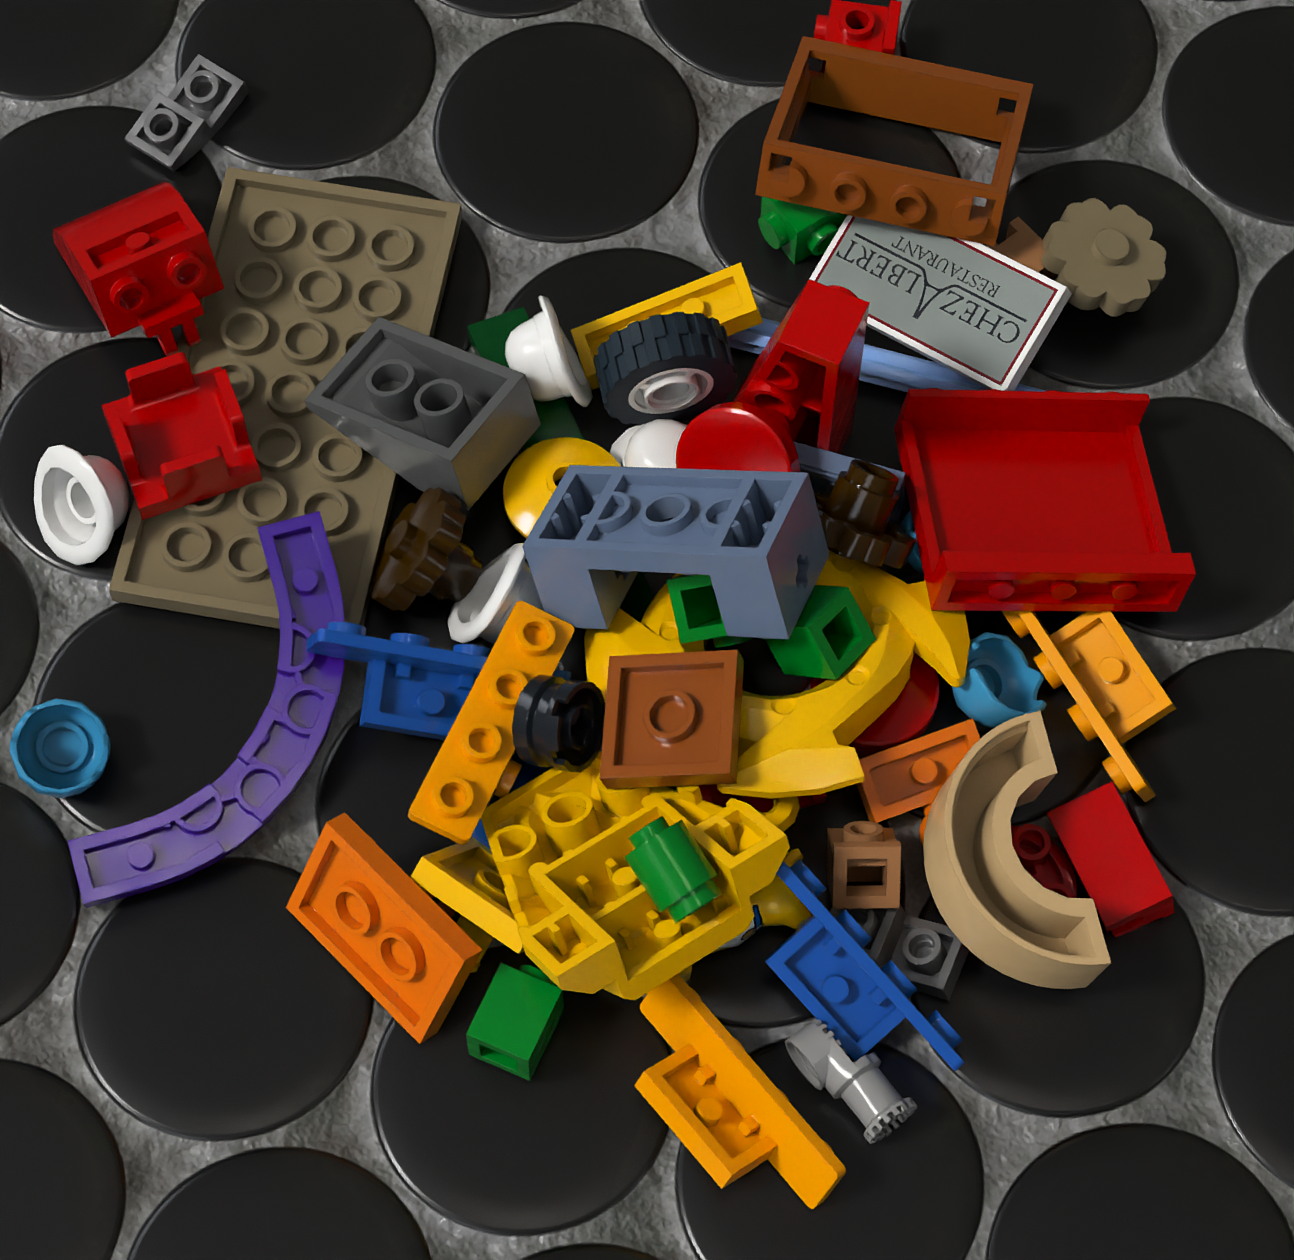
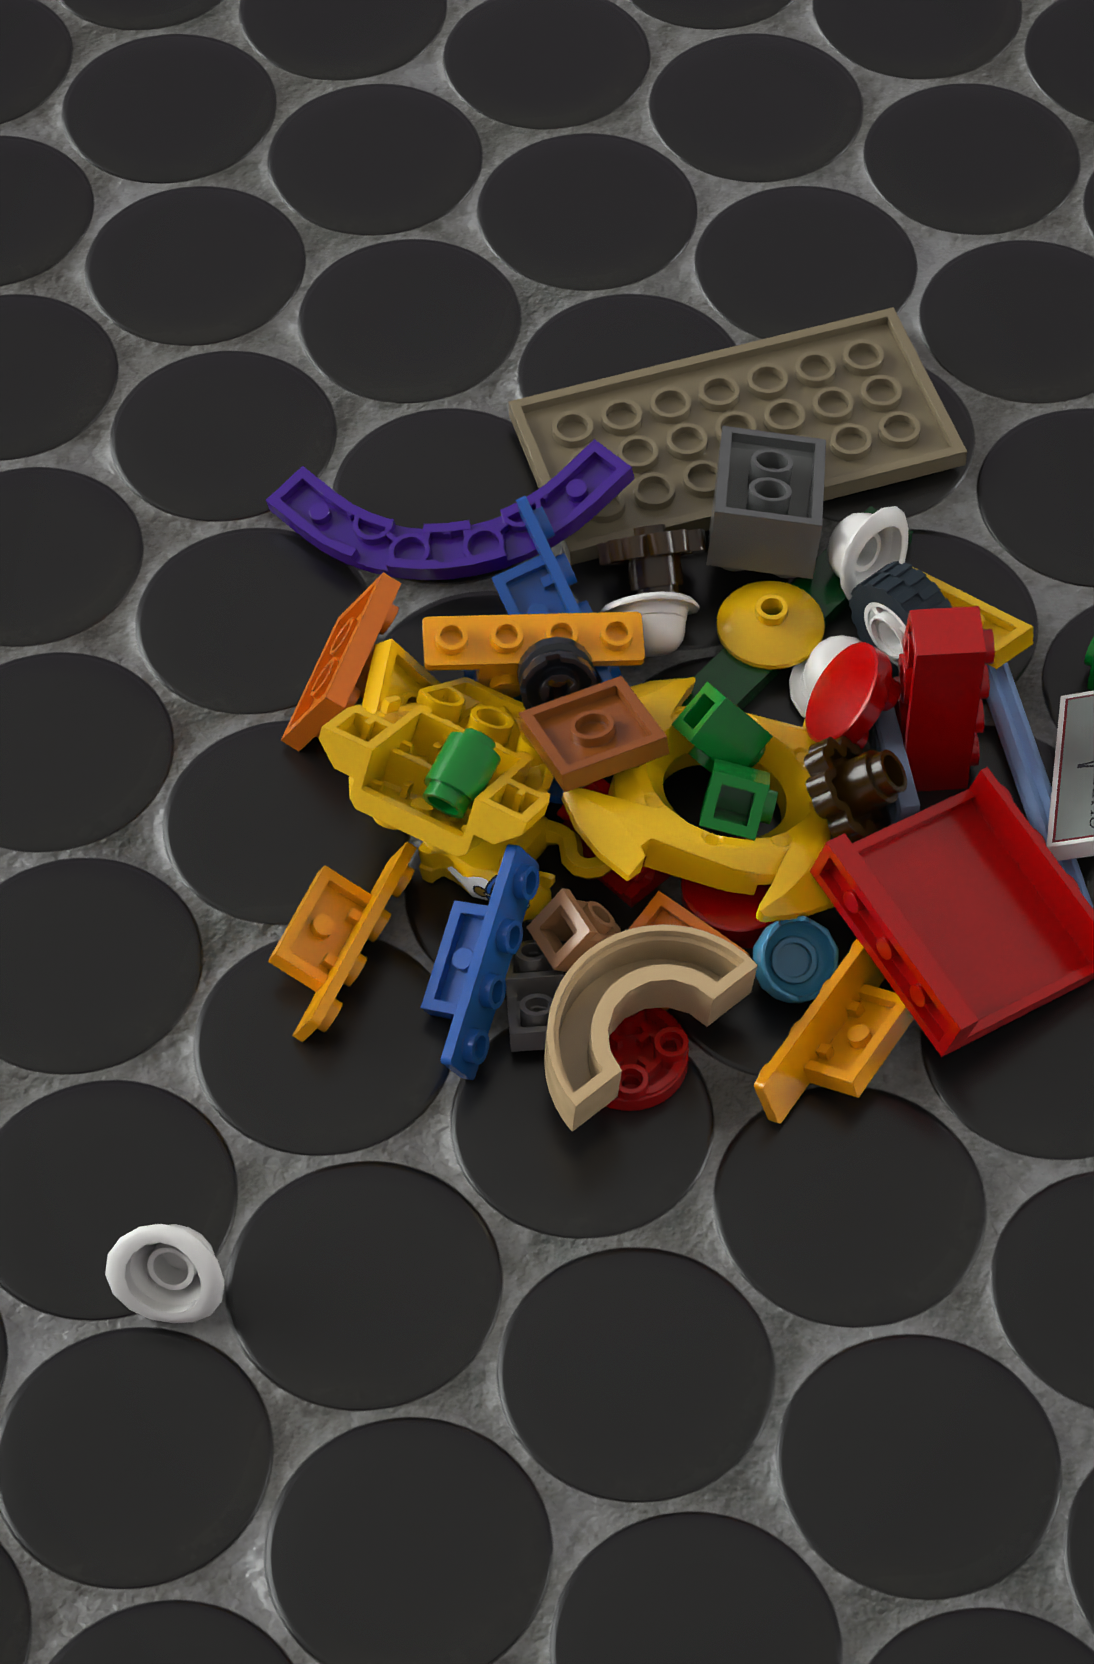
camera: 65 degrees right, 10 degrees down
(60, 748) = (369, 431): dark azure hair -> none
(78, 503) = (567, 356): white hat -> none
(143, 264) = (765, 288): red piece -> none
(180, 435) = (646, 374): red panel -> none
(193, 112) = (914, 273): flat silver slope -> none
(516, 1020) = (312, 781): green brick -> none
(743, 528) = (754, 687): sand blue plate -> none
(856, 1082) = (403, 1010): light grey connector -> none
(1112, 860) = (693, 1107): red hinge -> none

